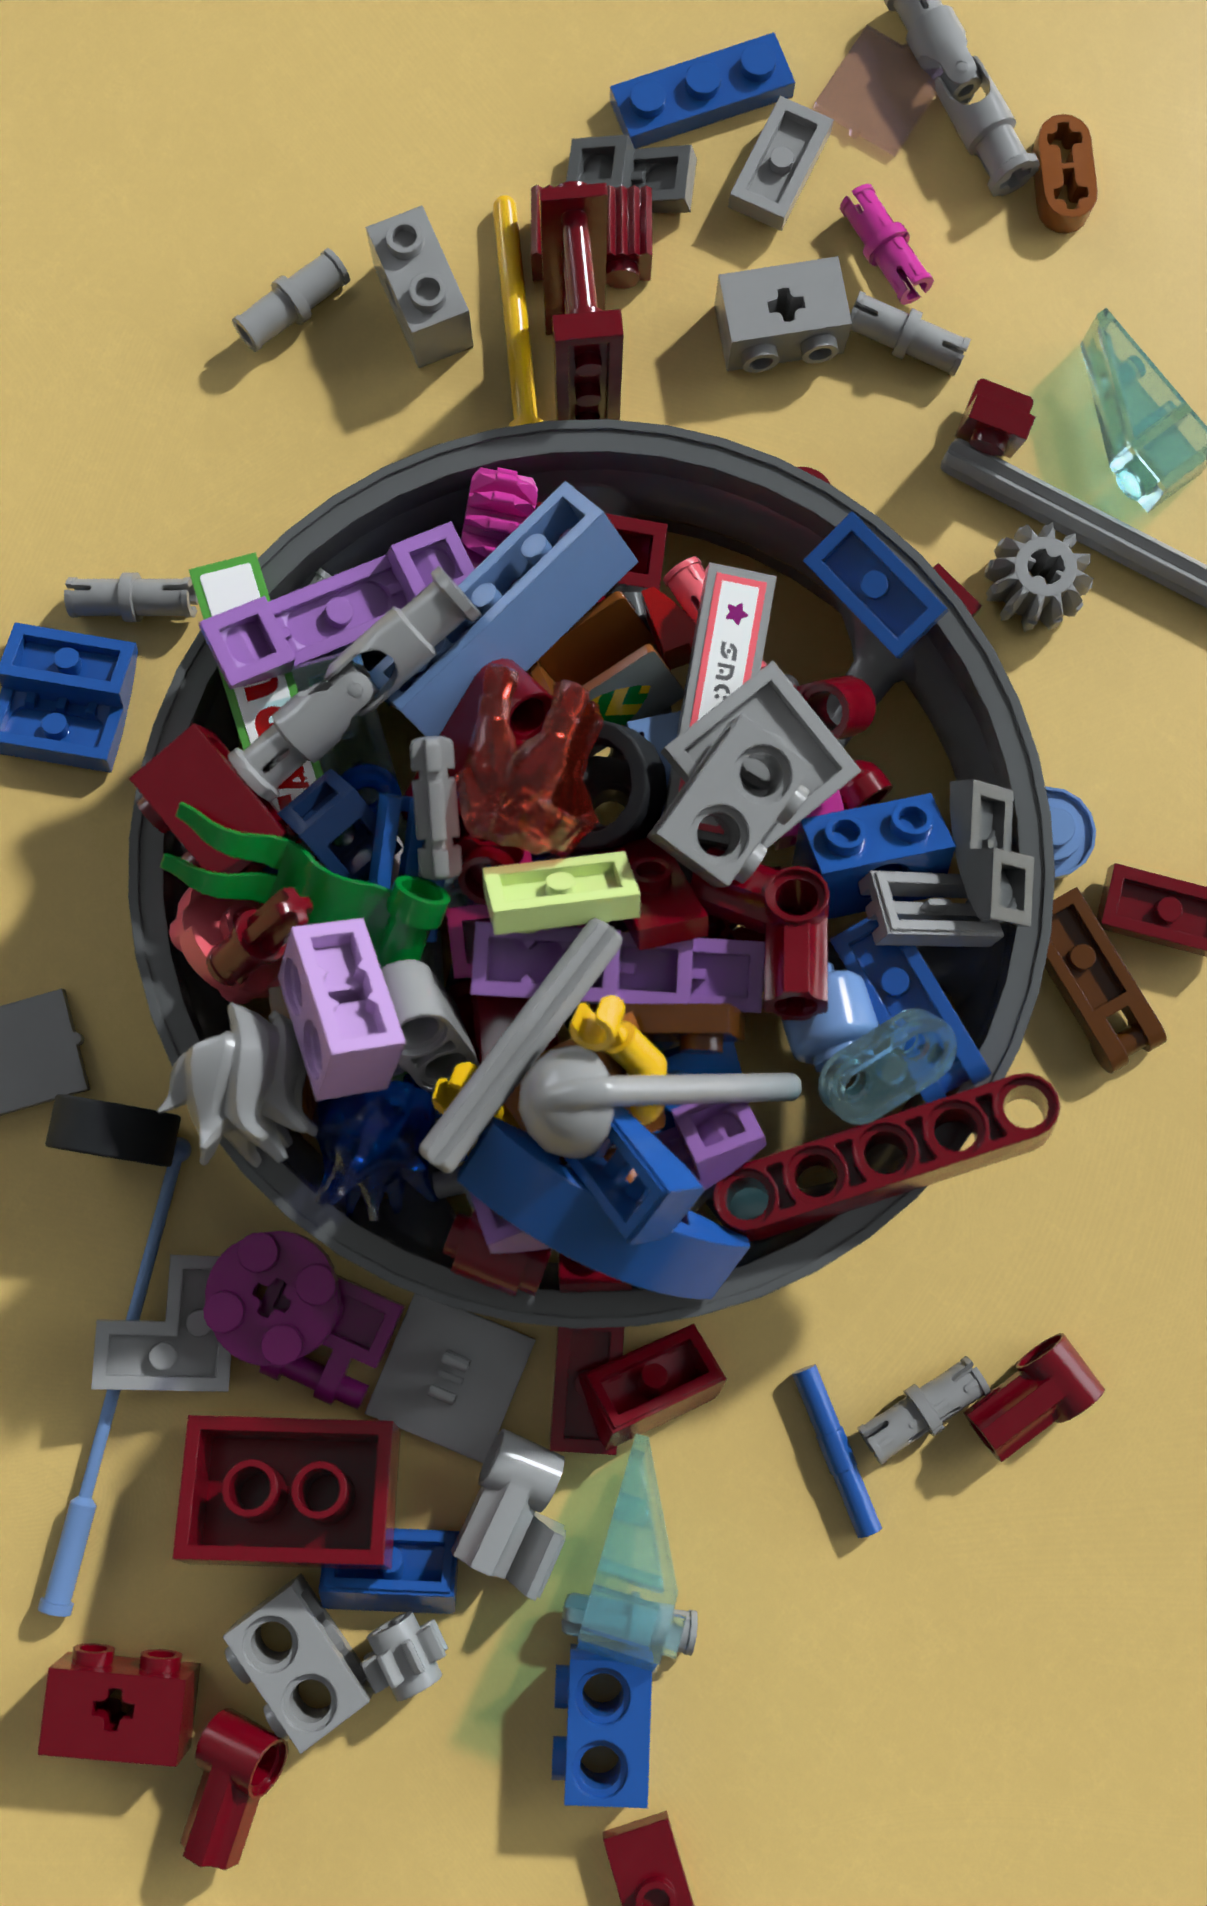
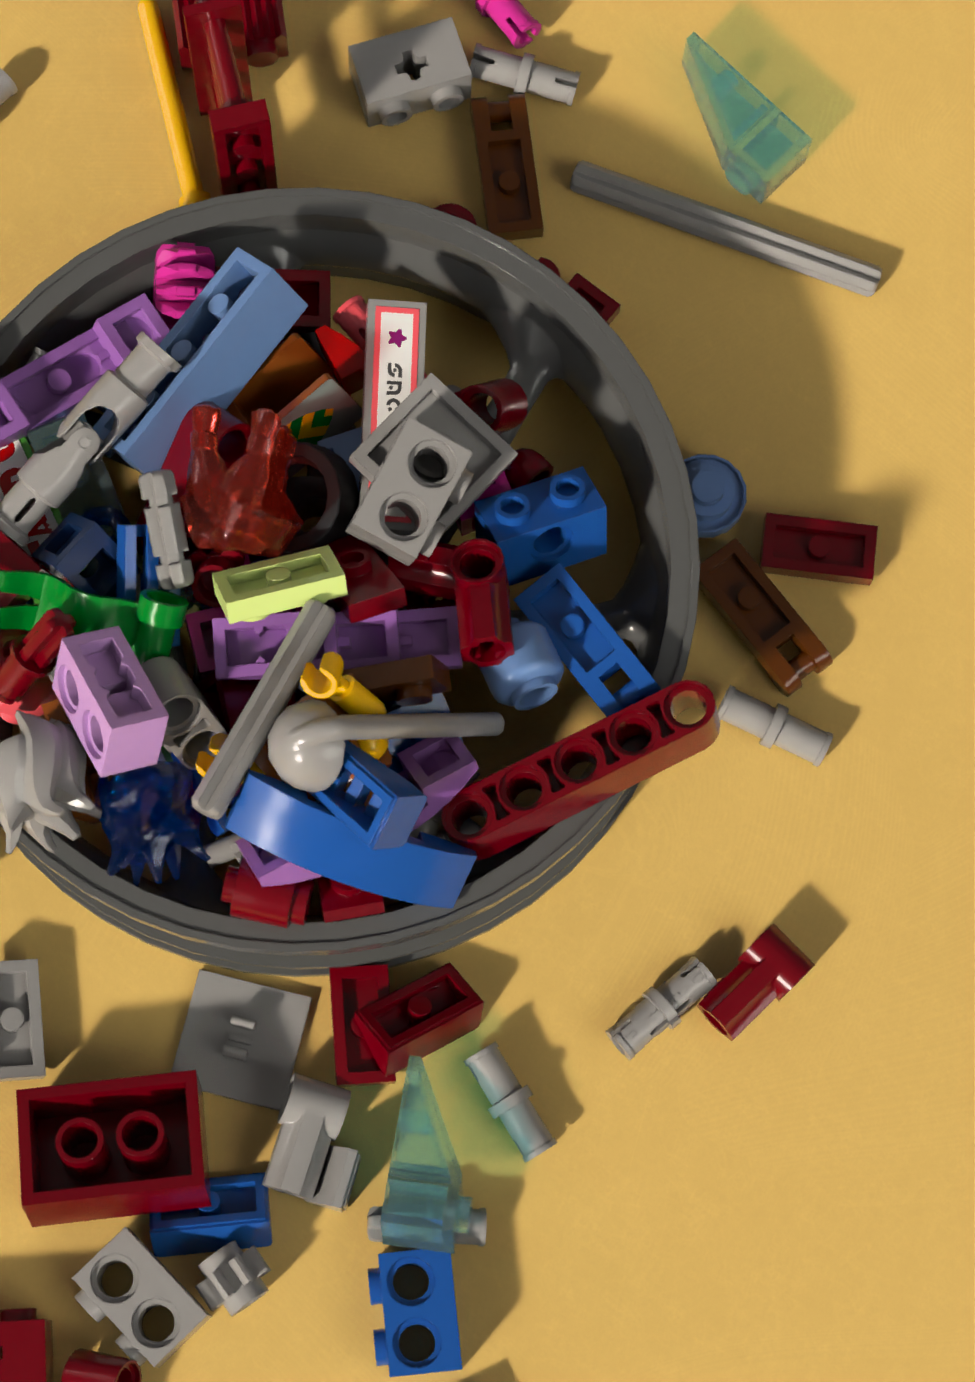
camera: 10 degrees left, 5 degrees down
(235, 1311) = (88, 1016): magenta plate -> none
(360, 1334) = (125, 995): magenta plate -> none
(420, 286) = (83, 89): light grey brick -> none
(741, 1495) = (510, 1102): none -> light grey pin
(837, 1451) = (590, 1055): blue piece -> none
(875, 433) = (507, 168): none -> reddish brown plate
(875, 585) = (512, 299): blue plate -> none
(883, 1067) = (569, 695): clear light blue plate -> none
(928, 922) = (599, 570): light grey tile -> none
(993, 876) = (629, 491): dark grey slope -> none
(996, 419) = (611, 140): dark red bracket -> none
(1045, 559) = (673, 257): light grey gear -> none
(1096, 1108) = (774, 726): none -> light grey pin

